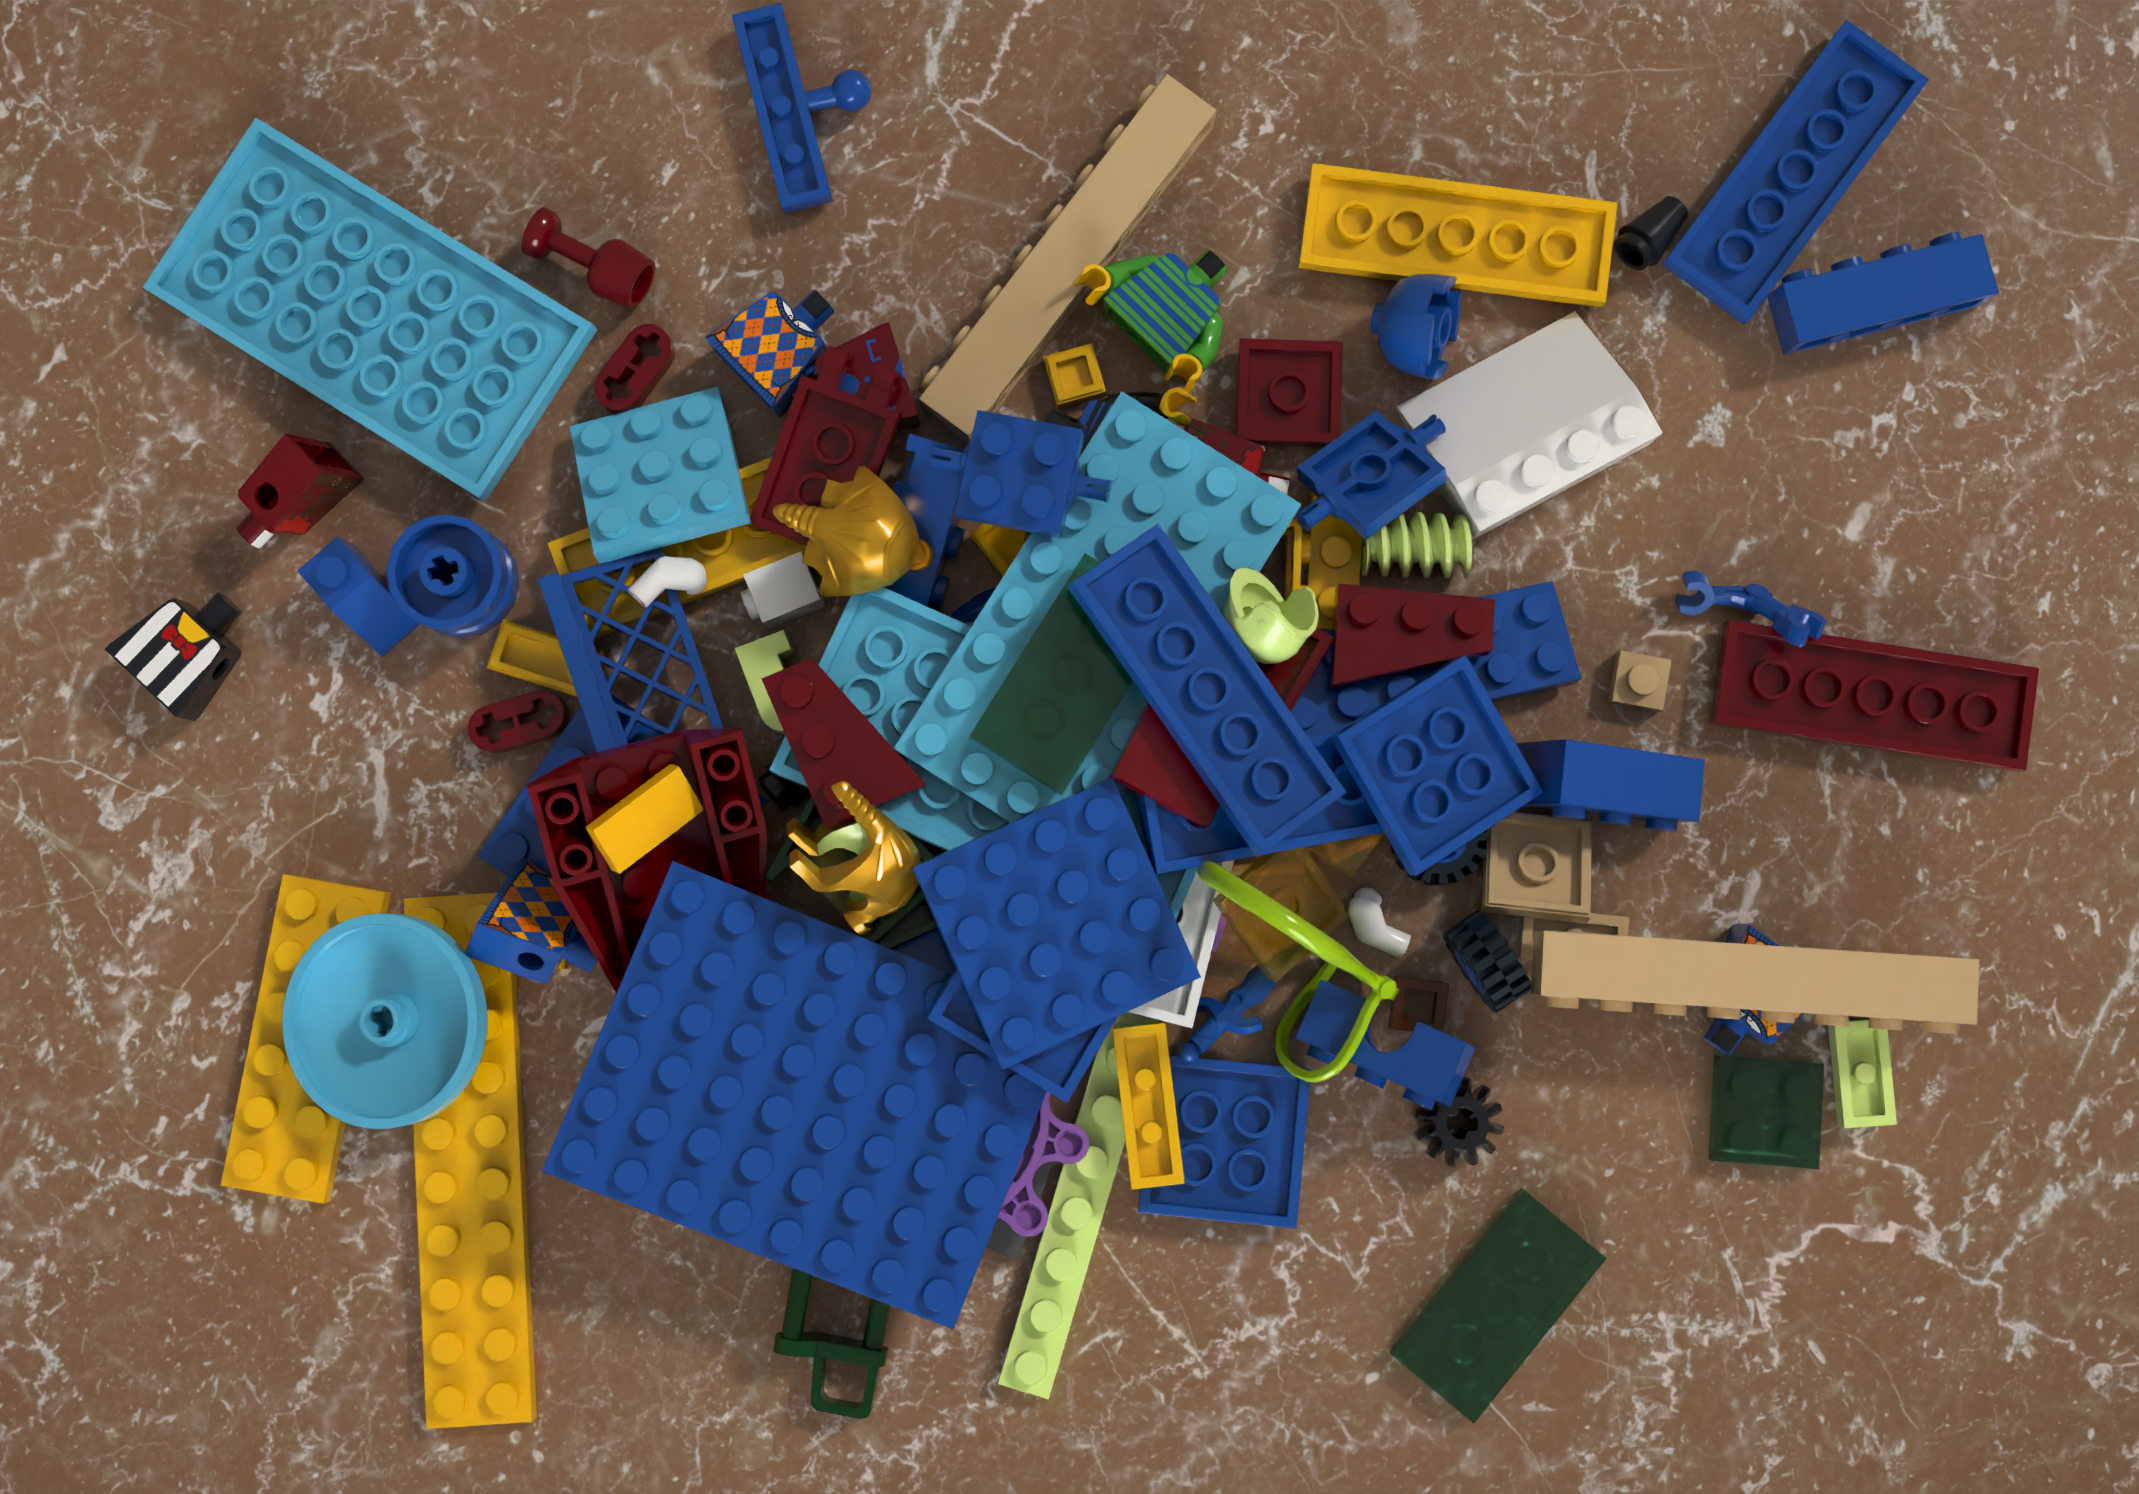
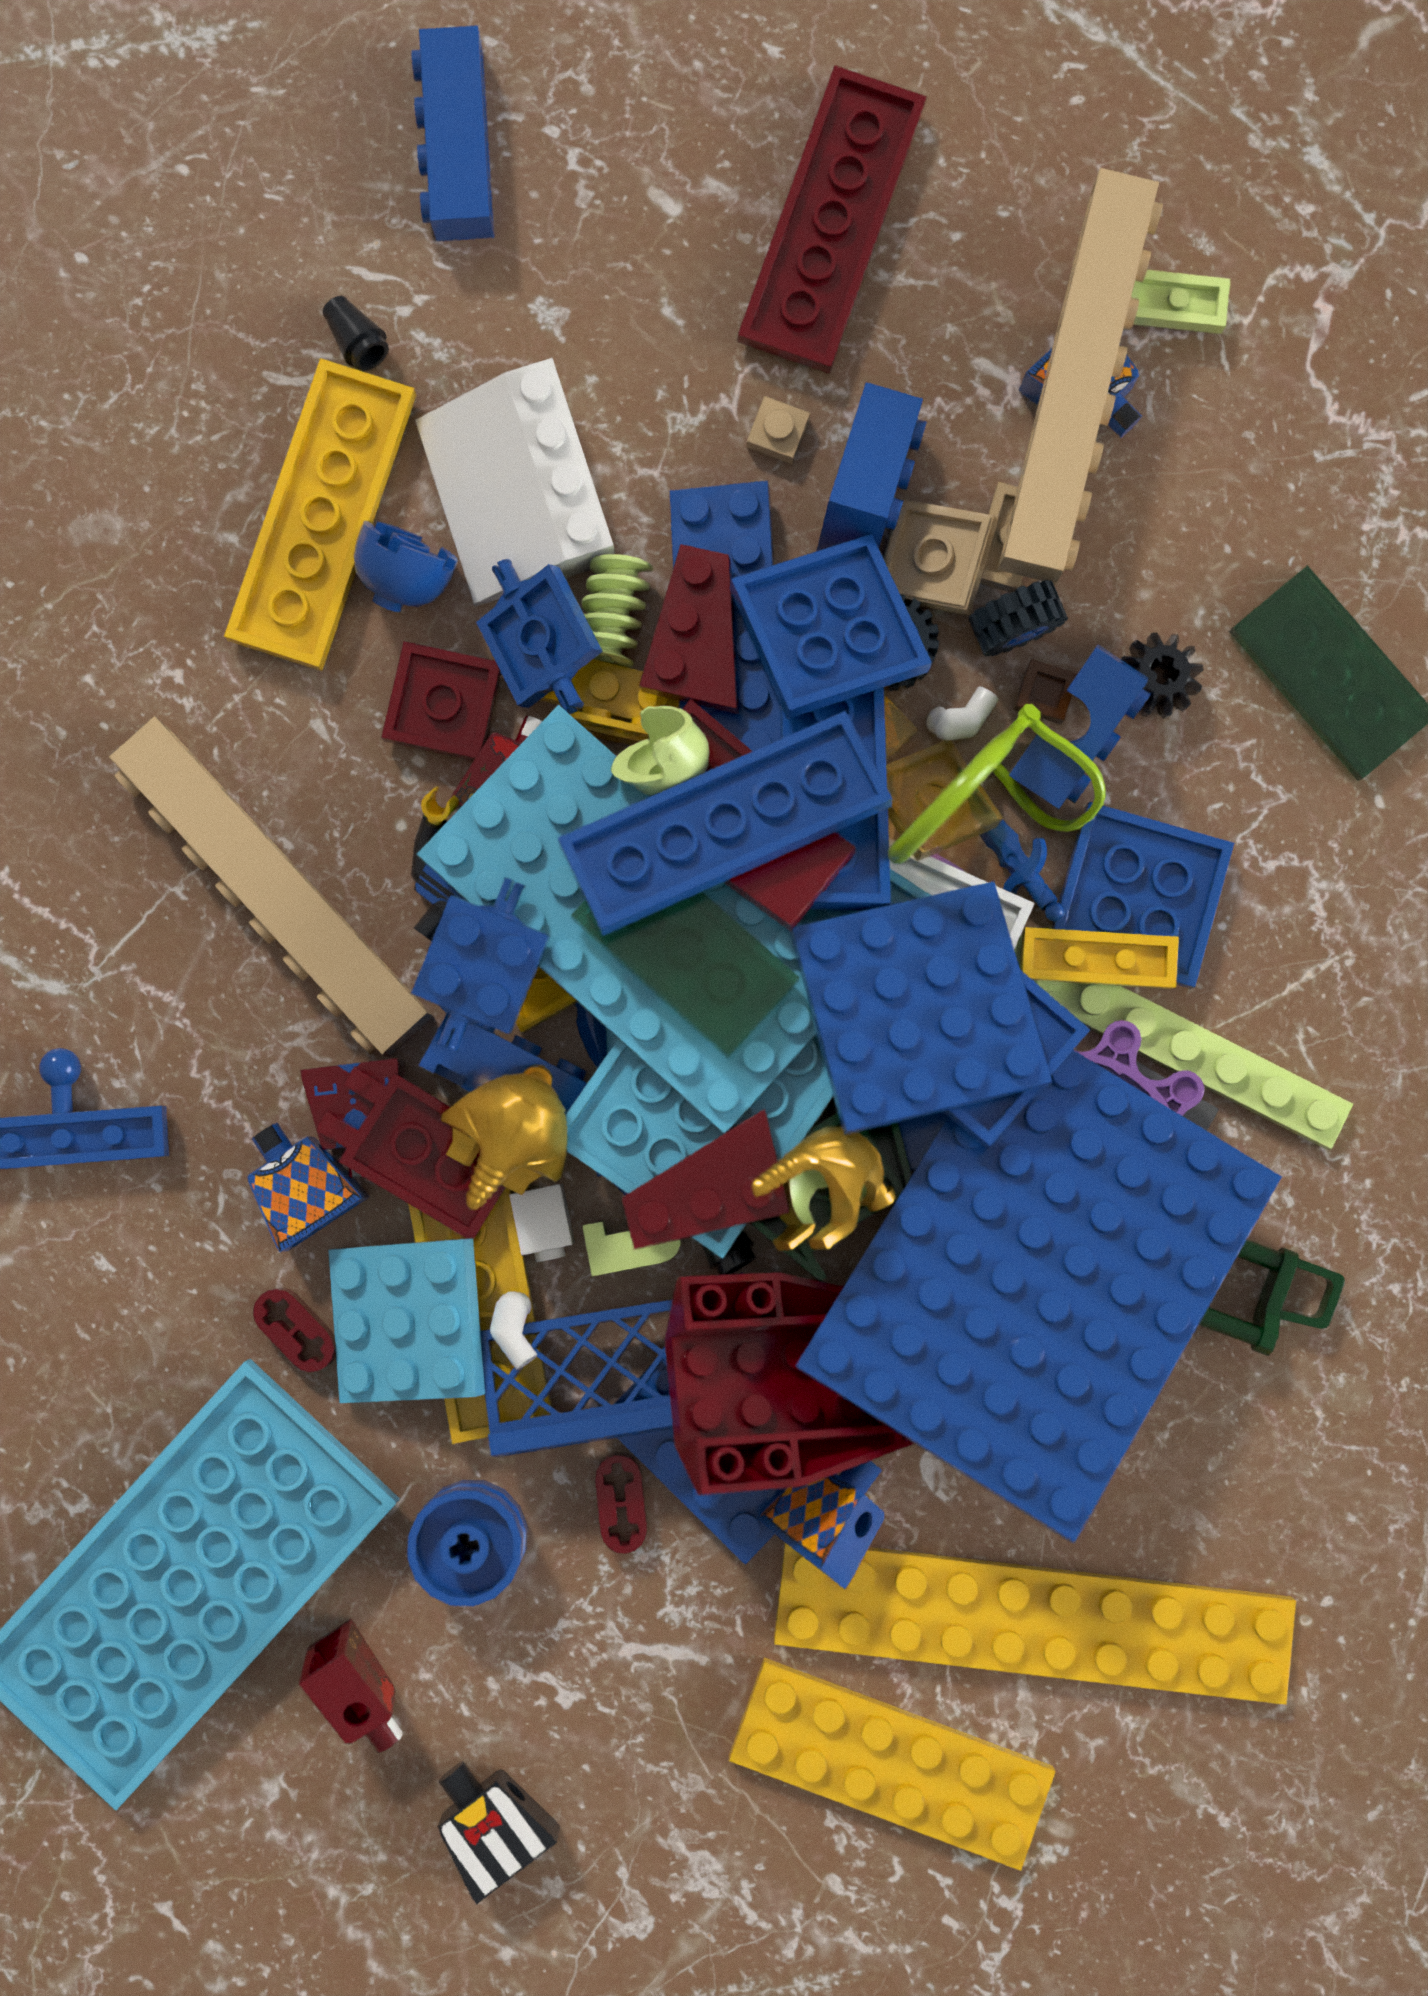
camera: 85 degrees left, 0 degrees up
(358, 595) = (468, 1641): blue slope -> none
(384, 1020) = (894, 1679): medium azure dish -> none
(531, 657) = (560, 1479): yellow tile -> none
(614, 269) = (194, 1331): dark red piece -> none
(644, 818) = (748, 1386): yellow tile -> none
(1074, 375) = (385, 903): yellow tile -> none
(1164, 308) = (339, 803): torso -> none
(1766, 1112) = (1197, 395): clear green plate -> none
(1791, 622) = (751, 278): blue piece -> none
(1795, 172) = (323, 189): blue plate -> none

